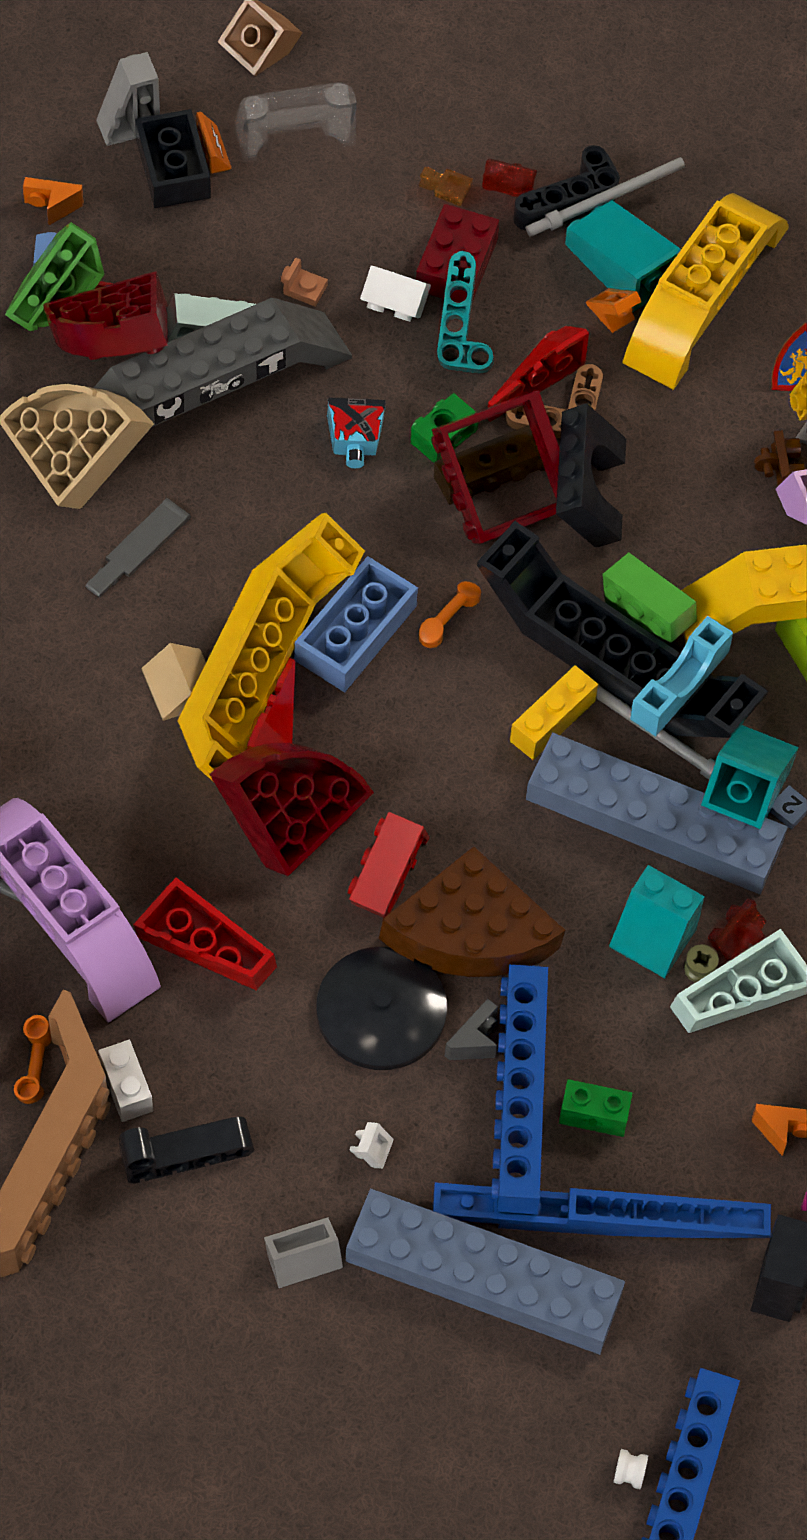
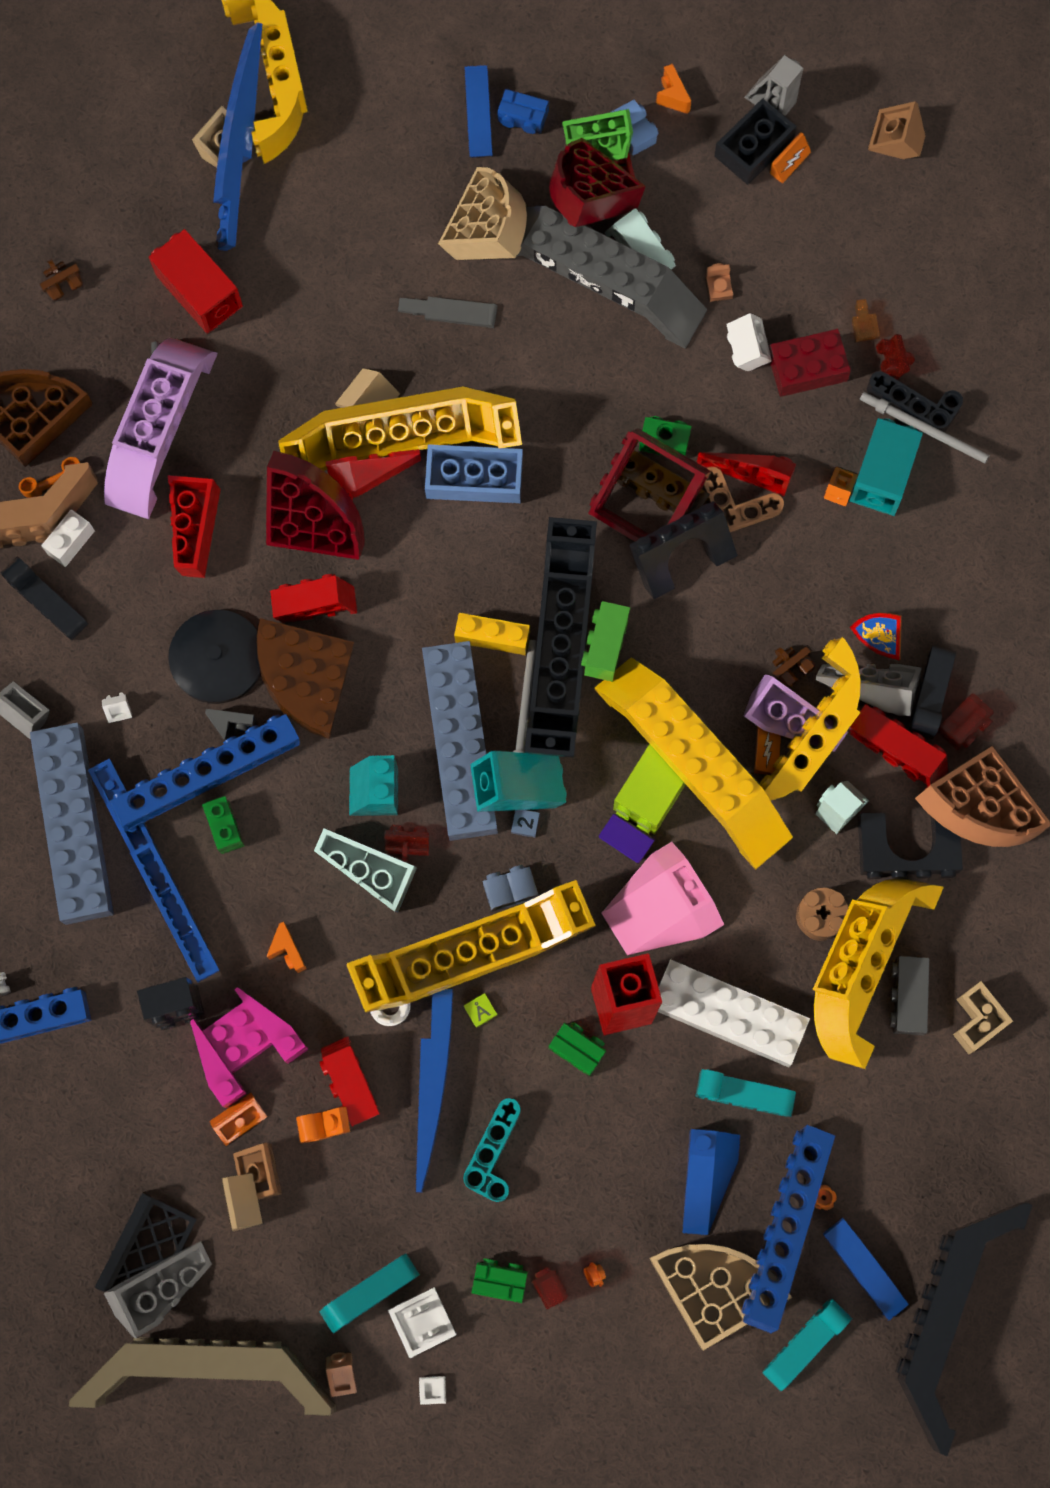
camera: 65 degrees right, 15 degrees up
(324, 106) = (818, 171): clear windscreen -> none
(355, 427) = (625, 384): torso -> none
(432, 628) = (506, 524): orange bar -> none
(461, 311) = (756, 394): teal beam -> none
(664, 697) = (530, 694): medium azure arch -> none
(694, 968) = (372, 835): olive wheel -> none
(699, 285) = (898, 528): yellow slope -> none

